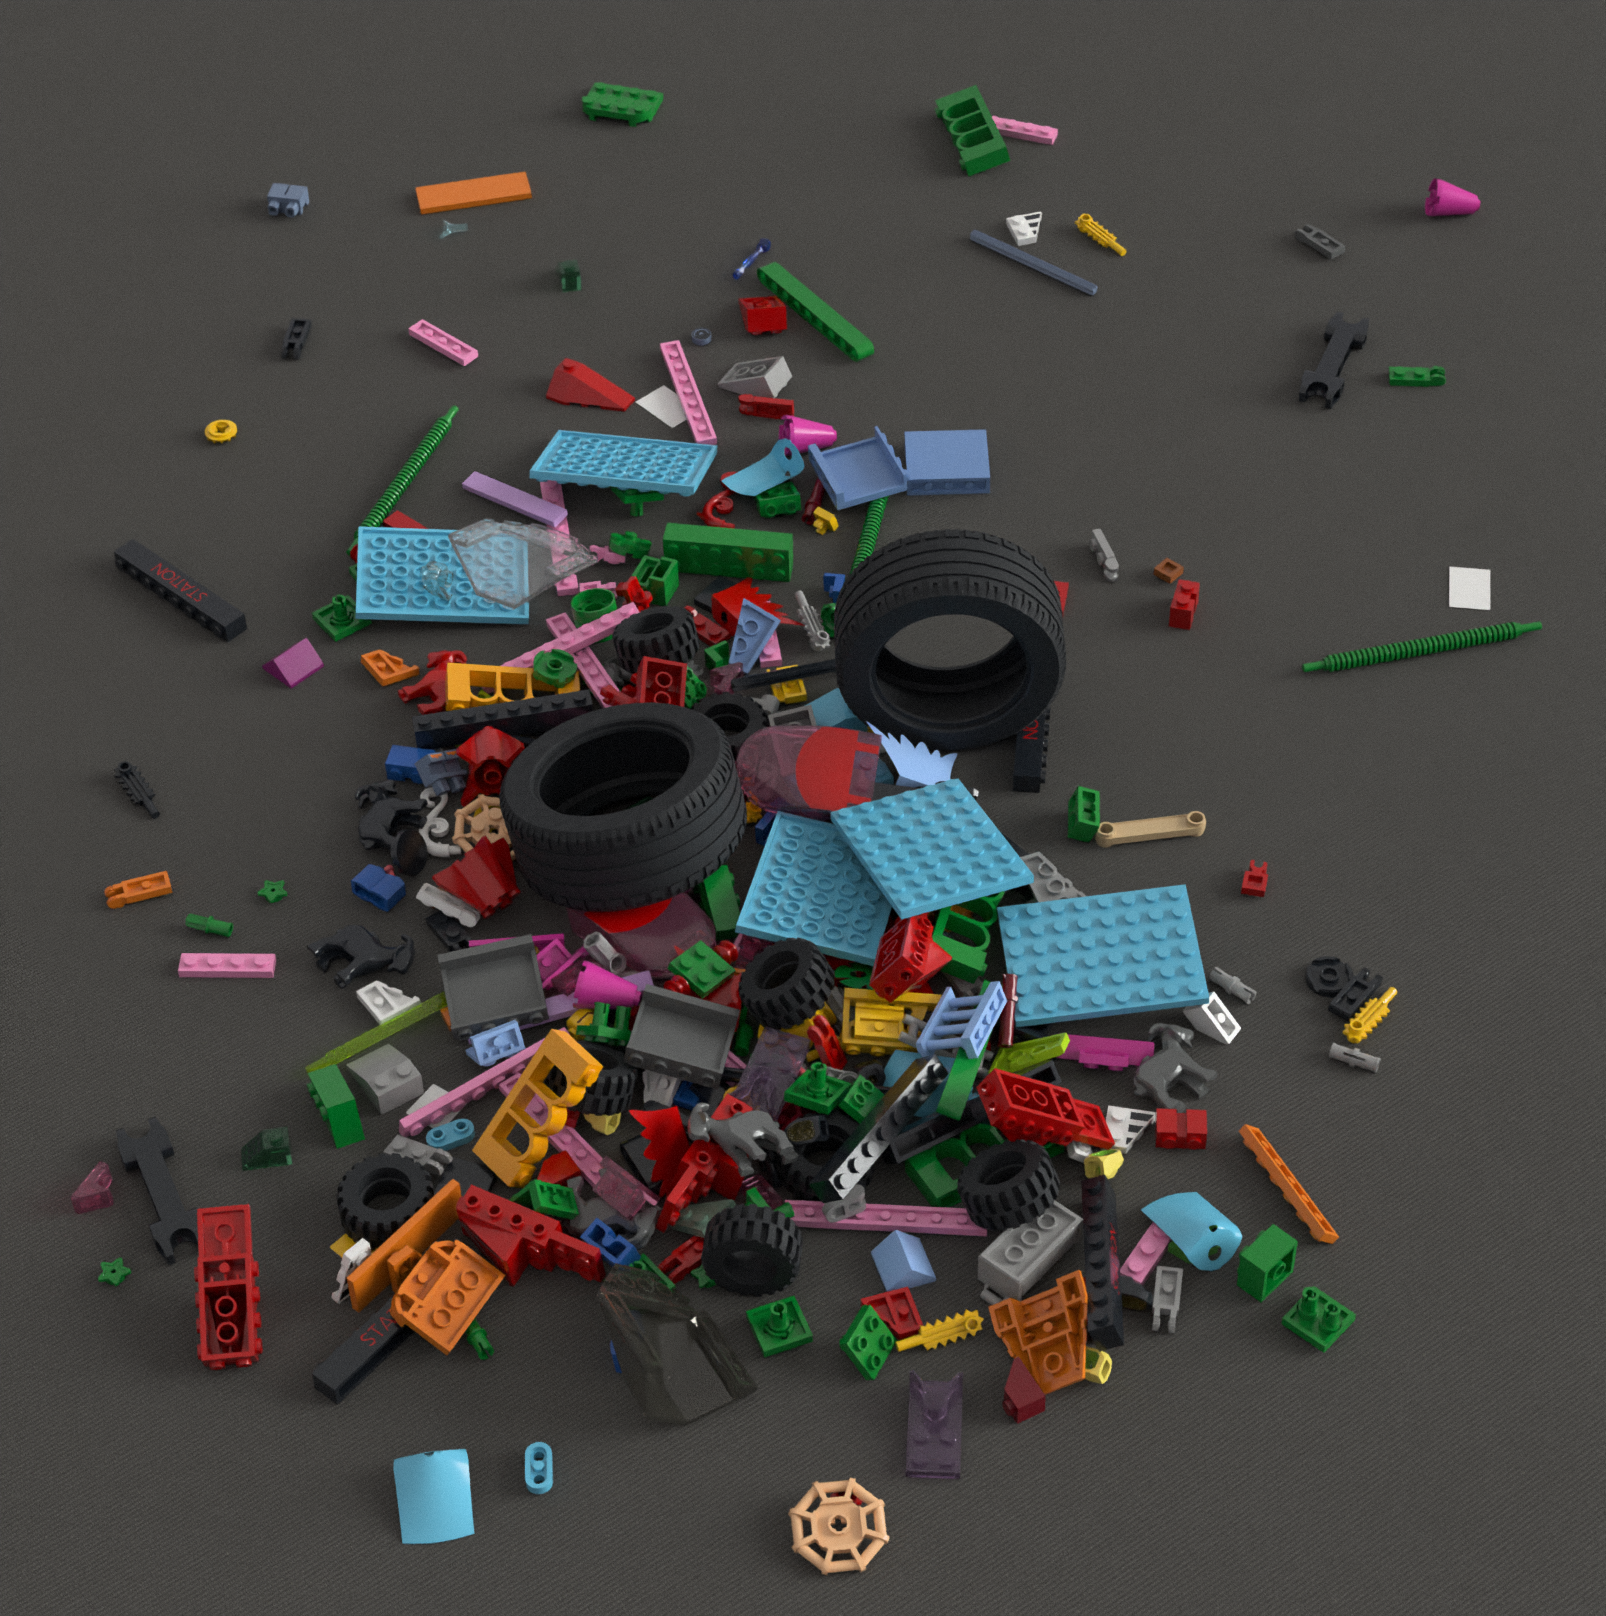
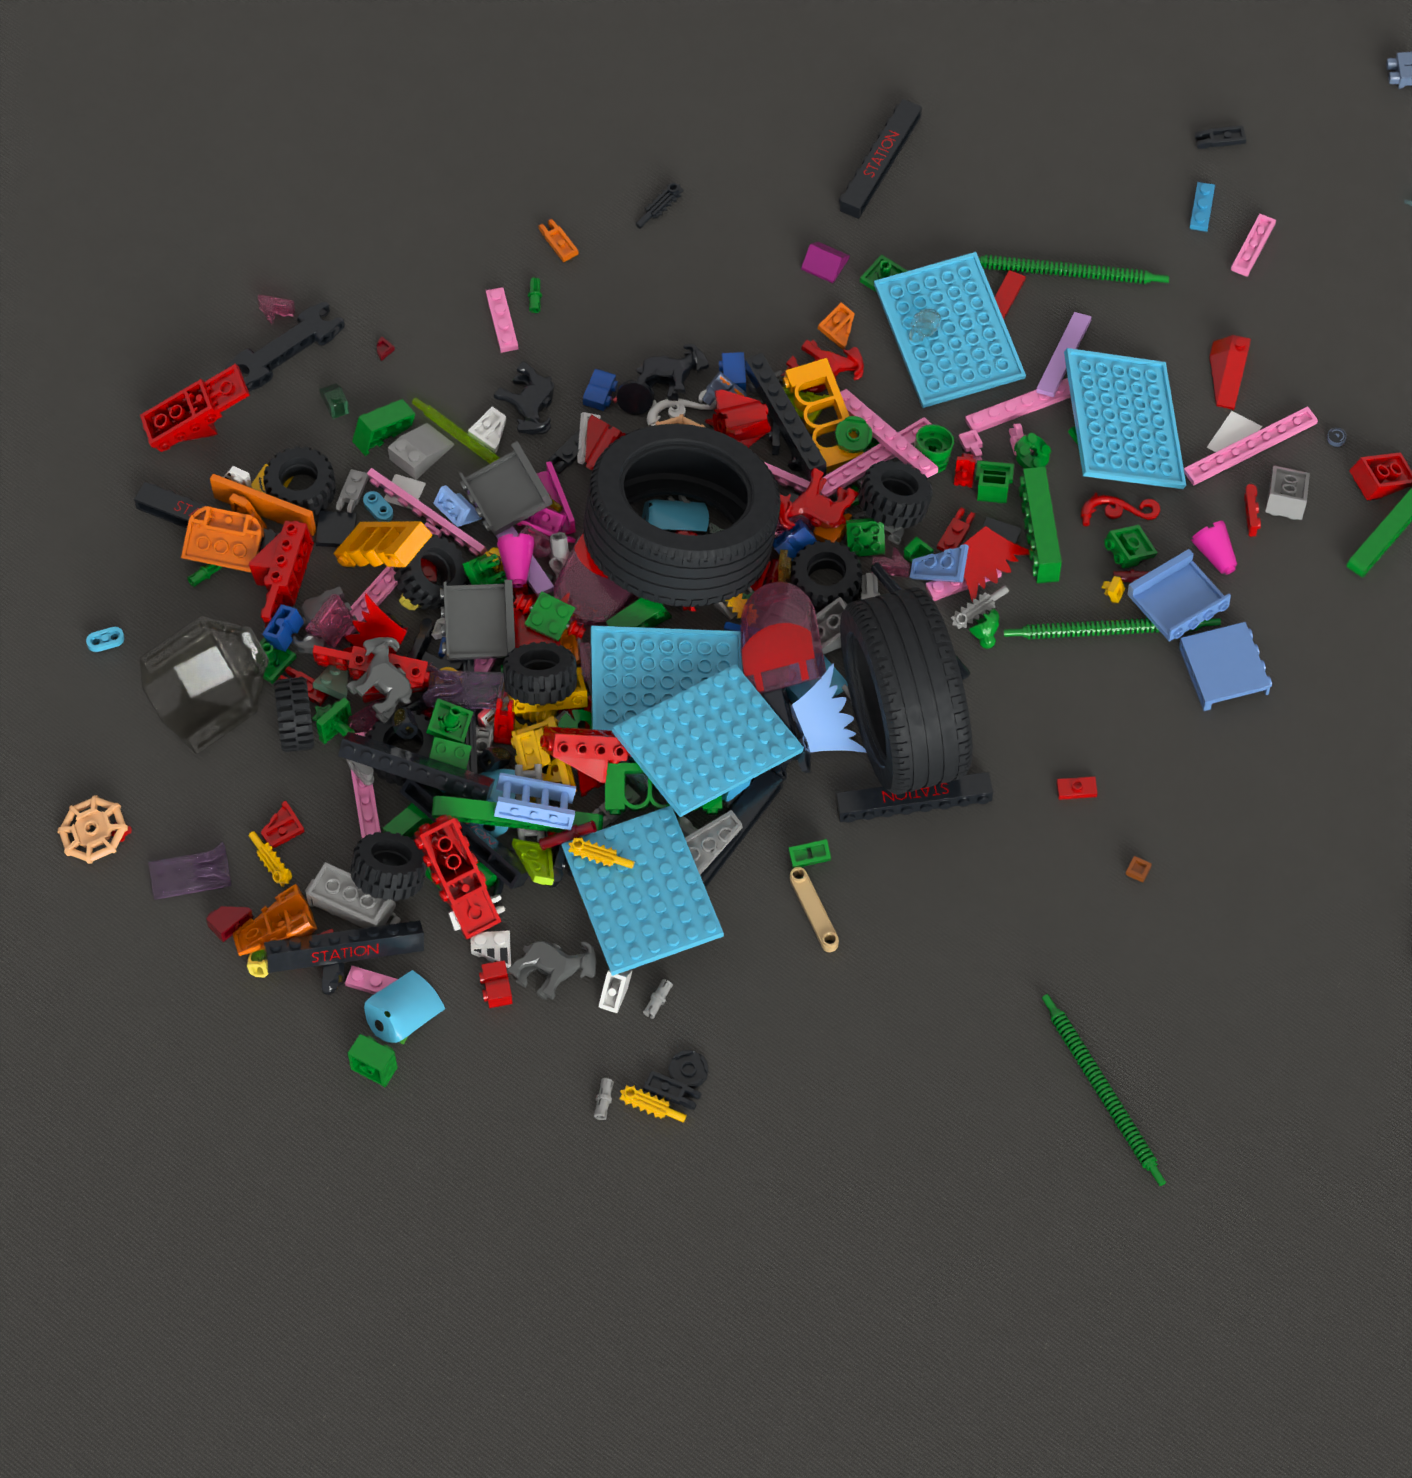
camera: 75 degrees right, 15 degrees up
(113, 1278) = (212, 348): green plate -> none
(211, 1090) = (384, 348): none -> dark red tile
(226, 428) = (1081, 118): yellow gear -> none
(278, 890) = (580, 328): green plate -> none
(374, 370) = (1202, 206): none -> dark azure plate
(434, 1496) = (71, 583): medium azure piece -> none
(516, 561) = (971, 373): clear windscreen -> none
(547, 1199) = (312, 581): green bracket -> none
(559, 1169) = (351, 580): red slope -> none
(569, 275) = (1382, 311): clear green slope -> none
(661, 681) = (826, 511): red slope -> none
(768, 471) = (1153, 527): medium azure piece -> none
(776, 1321) = (250, 750): green plate -> none
(833, 584) = (1030, 617): blue bracket -> none
(867, 1342) = (243, 811): green plate -> none
(902, 1262) = (329, 824): light blue slope -> none
(1047, 980) = (599, 854): none -> yellow piece
(1103, 1162) = (450, 937): light yellow rock -> none
(1104, 555) = (1140, 815): light grey hinge -> none
(1107, 1051) = (558, 917): dark pink bracket -> none
(1167, 1296) = (335, 1002): light grey hinge -> none
(1184, 604) = (1094, 885): red brick -> none
(1255, 880) = (775, 997): red plate -> none
(1283, 1178) = (460, 1068): orange plate -> none
(1318, 1318) = (338, 1107): green plate -> none
(1469, 588) = (1202, 1121): white sticker -> none

